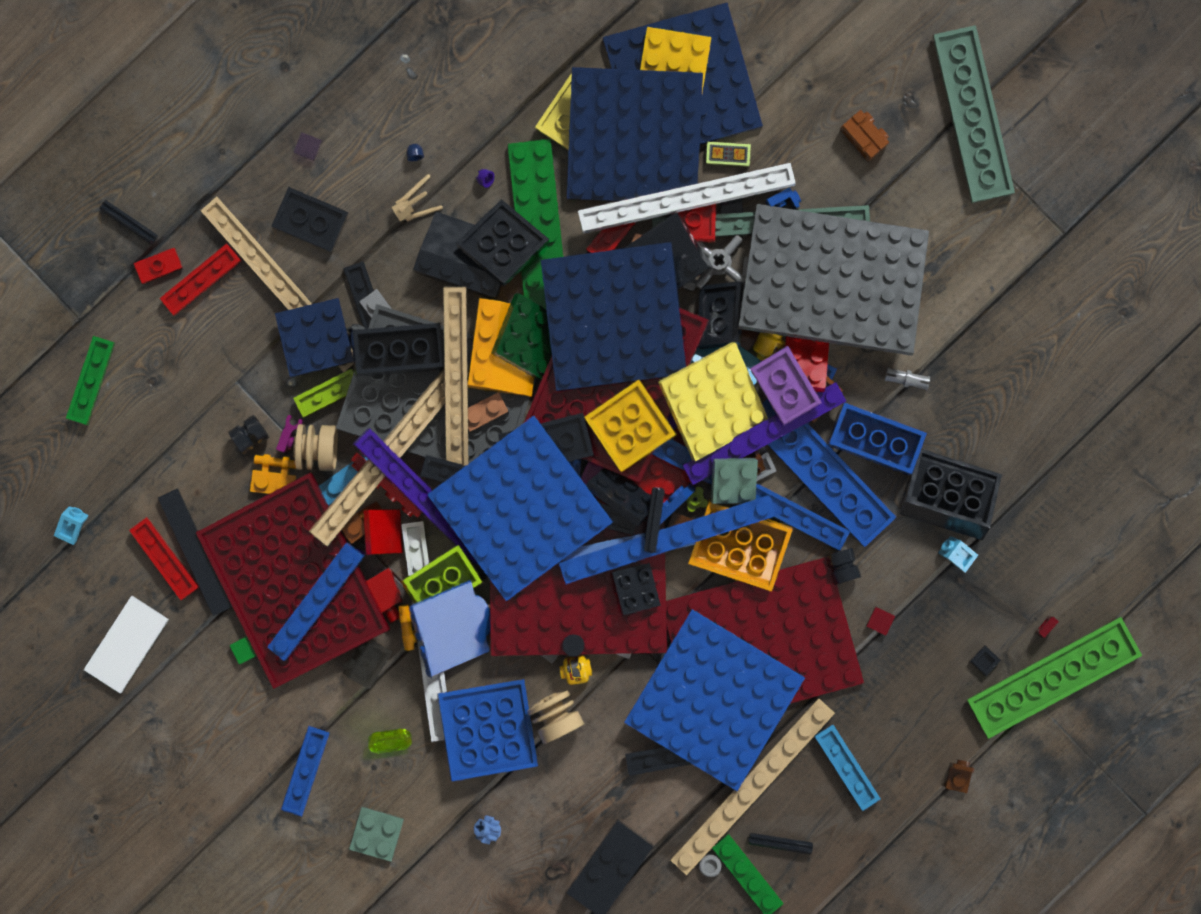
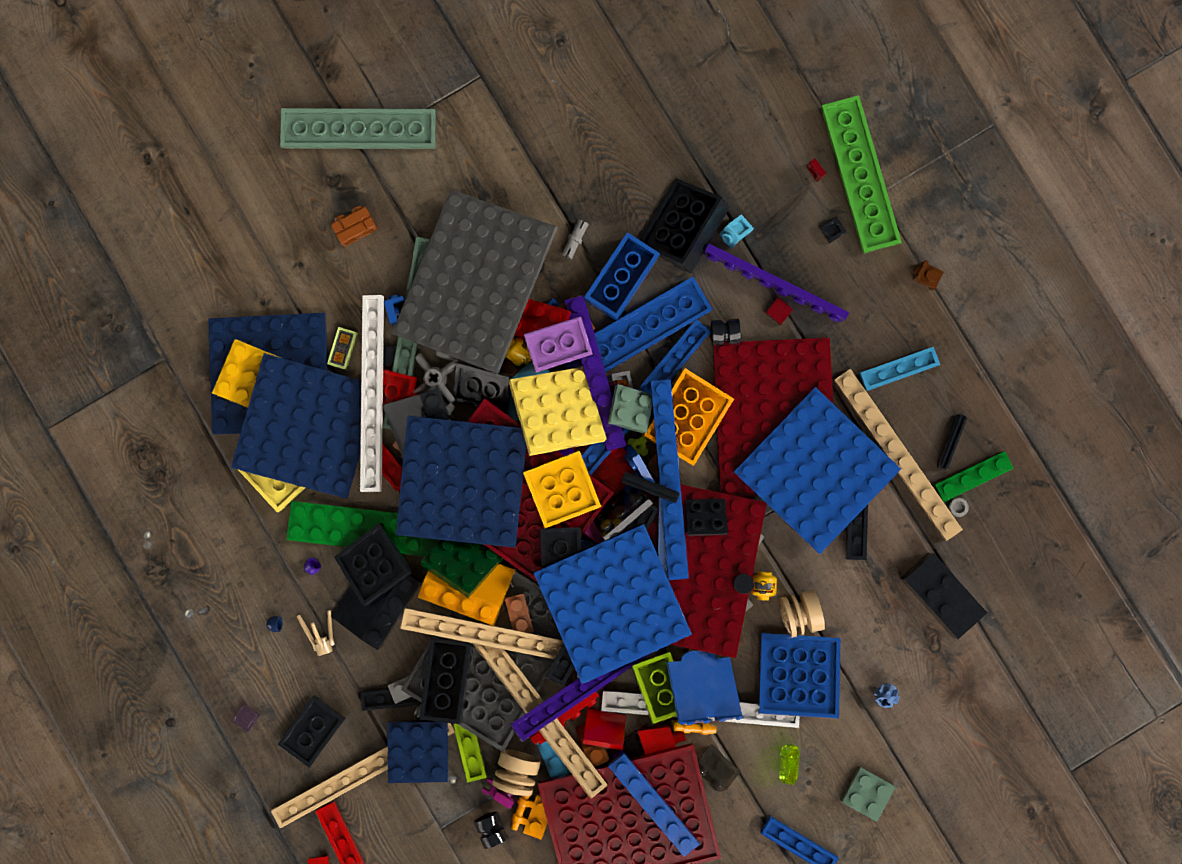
camera: 75 degrees left, 0 degrees up
(911, 600) = (768, 280): none -> dark purple plate

